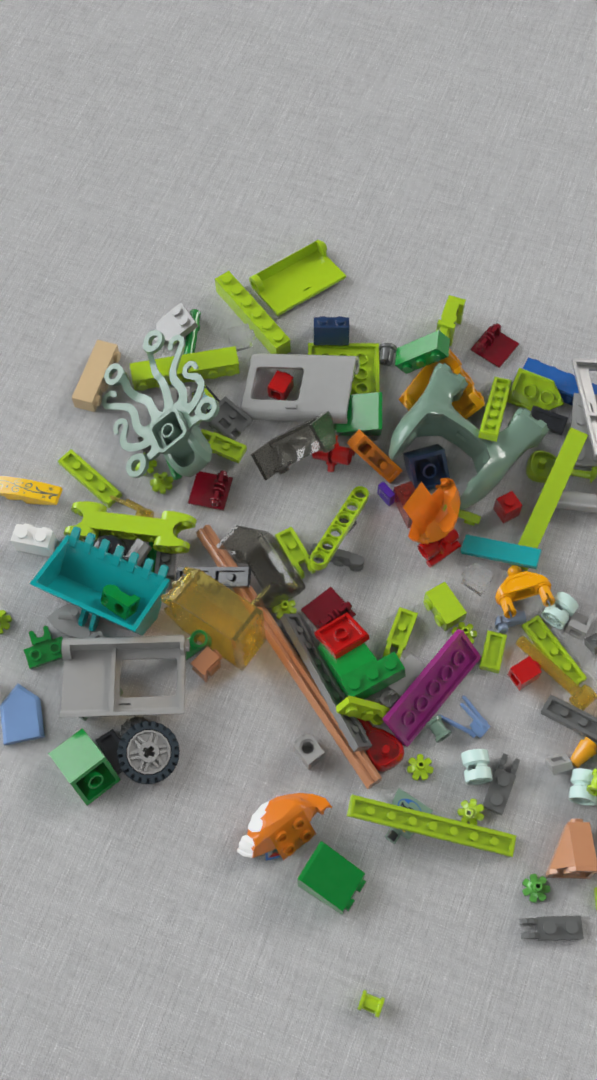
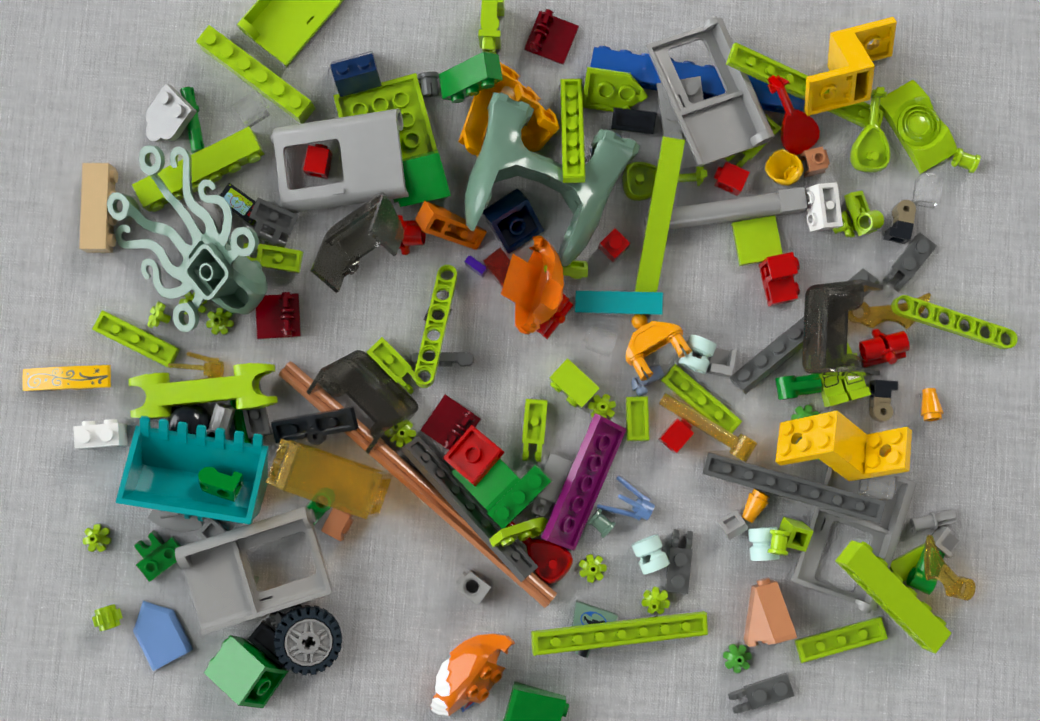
camera: 15 degrees left, 20 degrees up
(114, 464) = (158, 315): none -> lime plant

